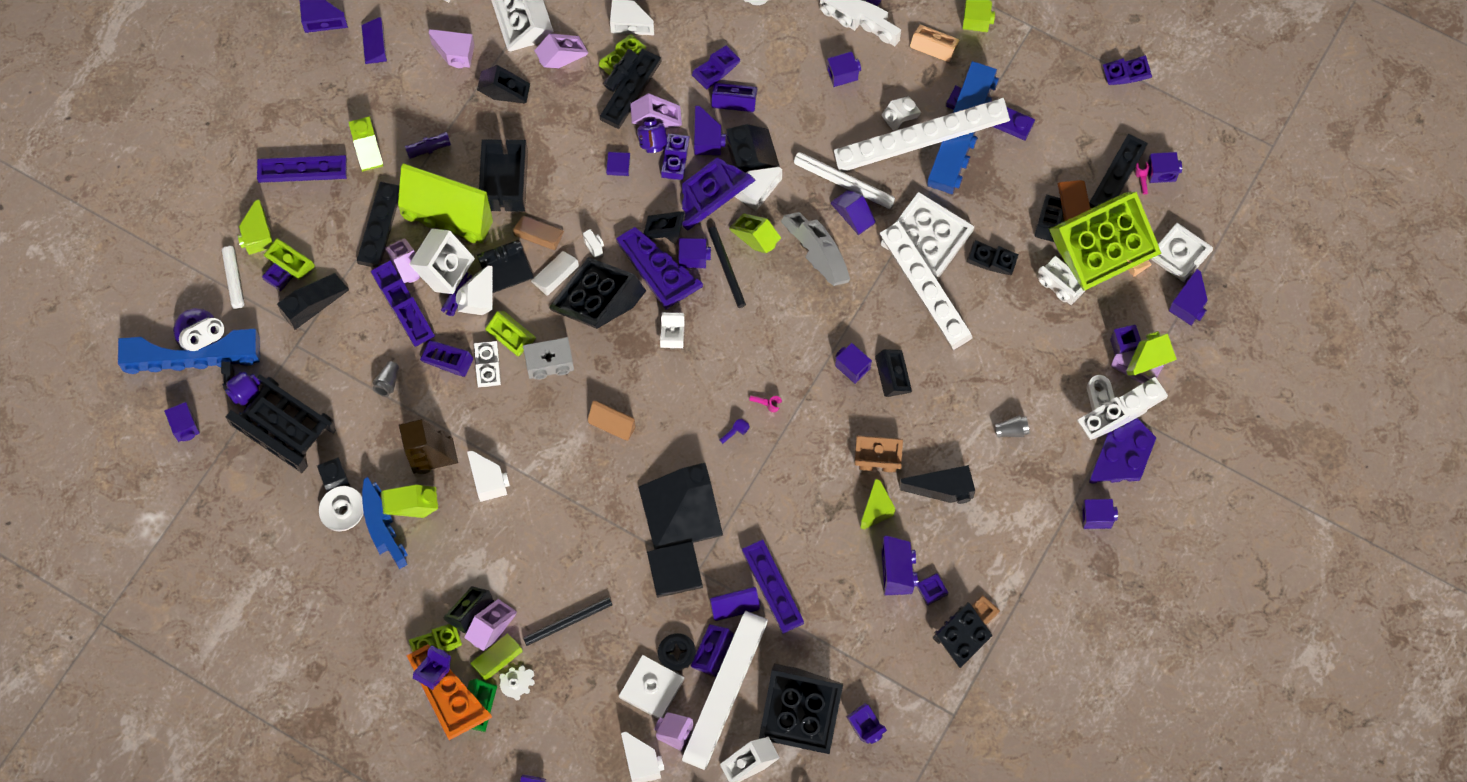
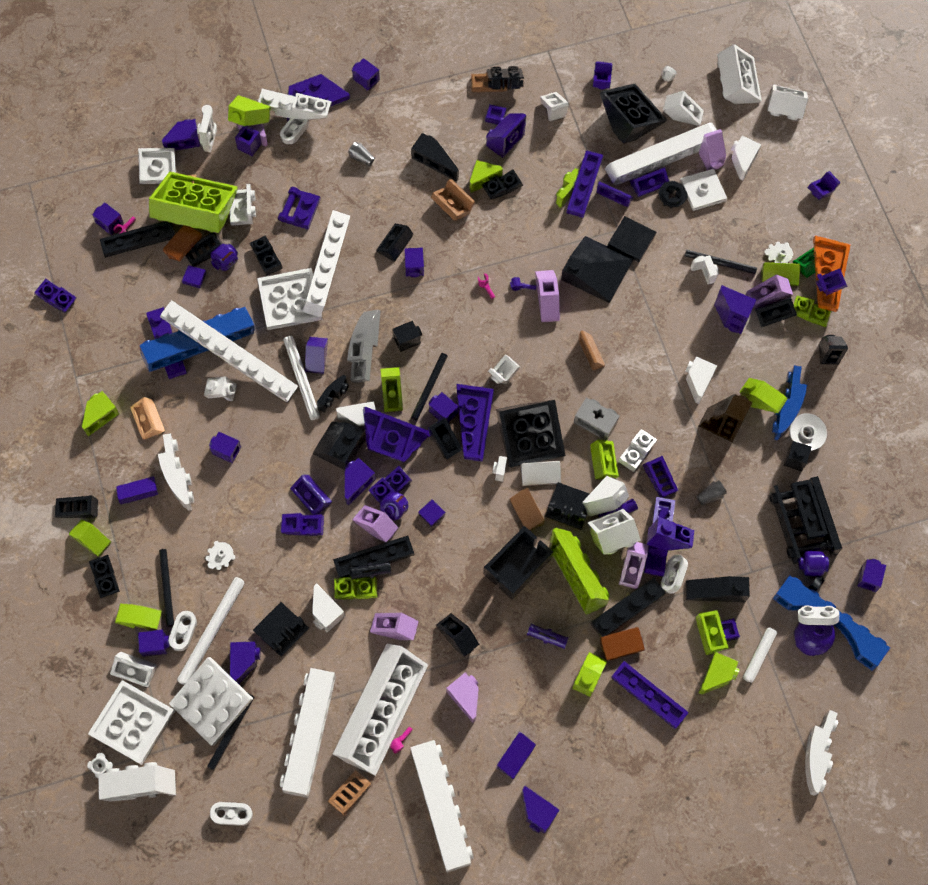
camera: 140 degrees left, 0 degrees up
(120, 235) = (816, 758): none -> white slope
(358, 189) = (622, 644): none -> dark orange slope
(361, 280) = (674, 574): none -> white plate
(381, 610) = (832, 349): none -> black slope
(387, 295) = (669, 535): none -> dark purple slope
(508, 566) = (733, 308): none -> dark purple slope
(569, 597) = (706, 264): none -> white bracket
(702, 437) = (548, 295): none -> lavender slope
(785, 568) = (568, 185): none -> lime slope
(789, 289) = (407, 336): none -> black brick
(800, 193) = (335, 390): none -> black slope
(850, 516) = (503, 185): none -> black slope
(883, 644) = (555, 105): none -> white slope
(1006, 332) = (305, 209): none -> dark purple plate
(1024, 221) = (224, 257): none -> dark purple head
(1032, 186) = (194, 276): none -> dark purple tile
(1168, 312) = (207, 129): none -> white plate

